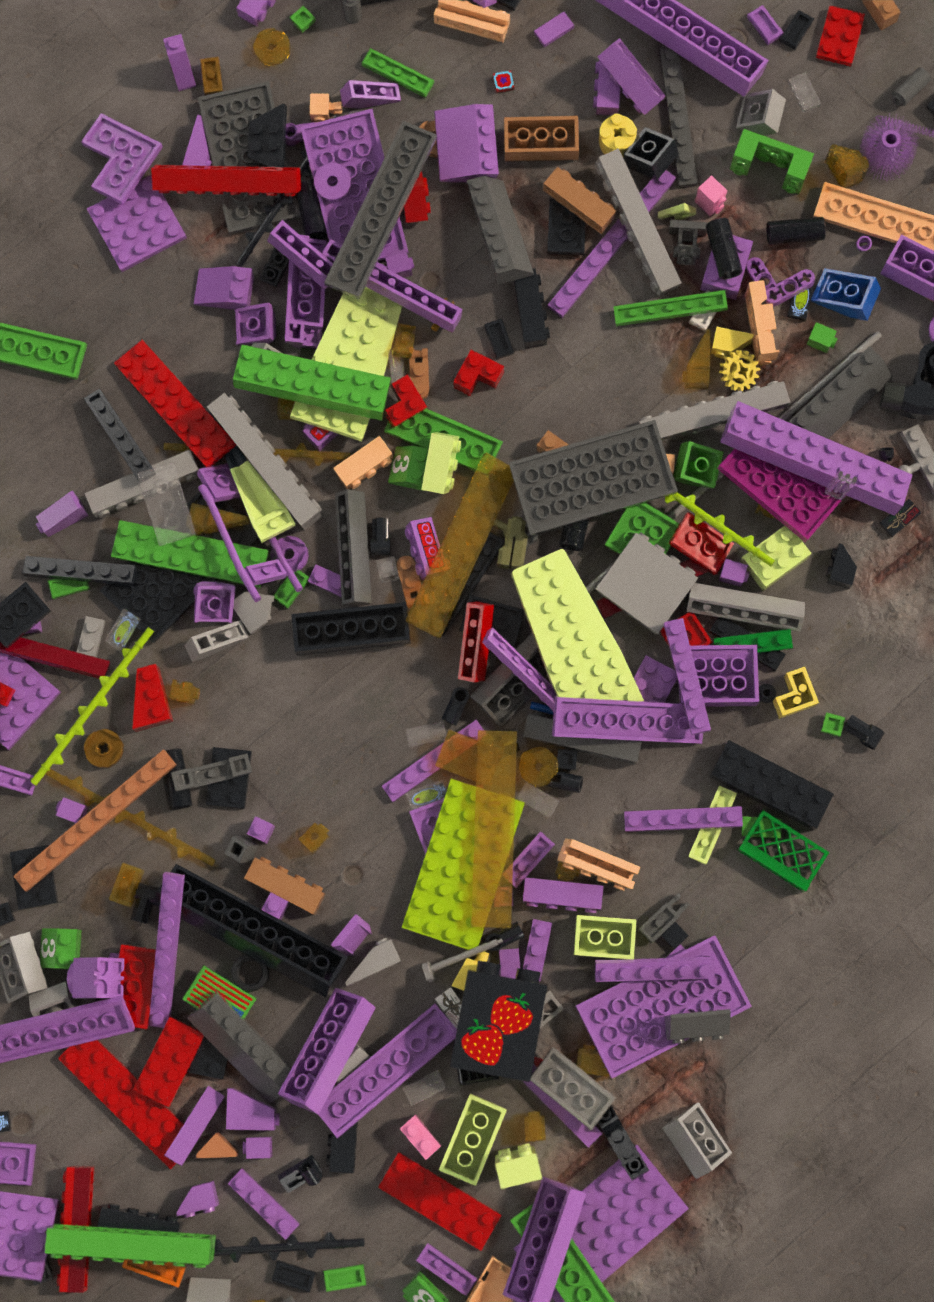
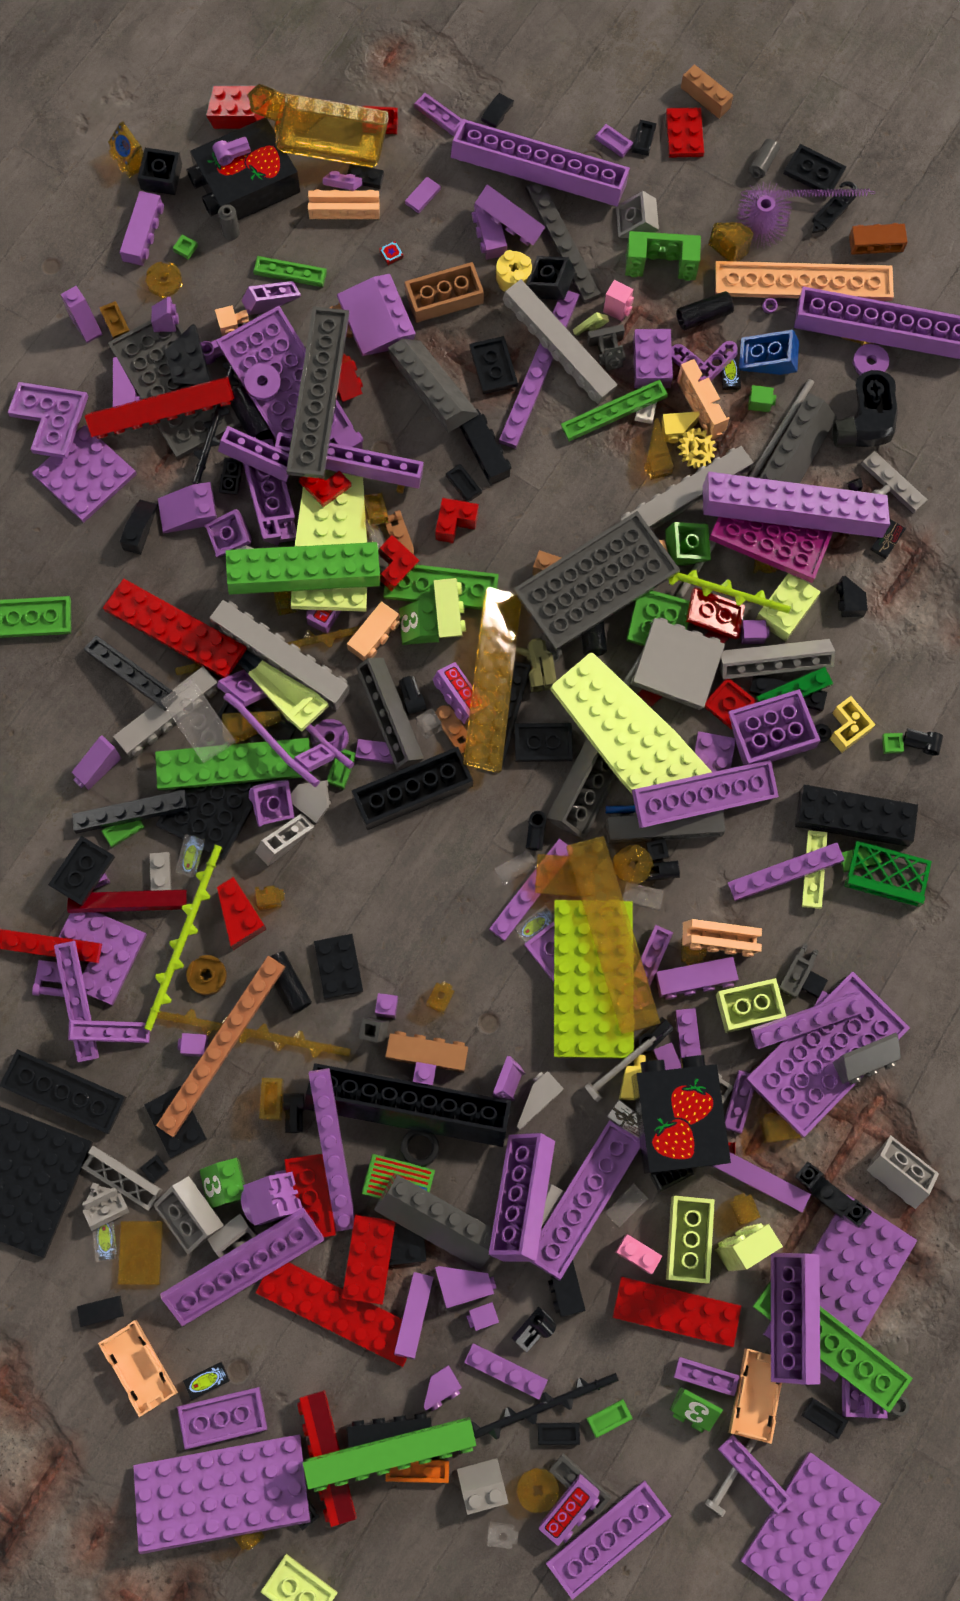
camera: 25 degrees left, 5 degrees down
(171, 292) = (138, 527): none -> black slope
(211, 773) = (322, 965): dark grey slope -> none
(217, 1147) = (442, 1330): nougat slope -> none
(258, 87) = (164, 316): none -> medium lavender slope
(363, 309) = (326, 490): none -> red plate
(473, 652) = (536, 764): red brick -> none
(520, 667) = (589, 775): medium lavender plate -> none
(563, 1026) = (739, 1103): none -> medium lavender tile
(572, 1088) = (770, 1159): light grey tile -> none
(579, 200) = (498, 336): medium nougat brick -> none
(687, 676) = (746, 737): medium lavender plate -> none
(723, 249) = (647, 340): black piece -> none
(804, 92) = (670, 189): clear plate -> none
(844, 479) = (829, 513): clear tile -> none

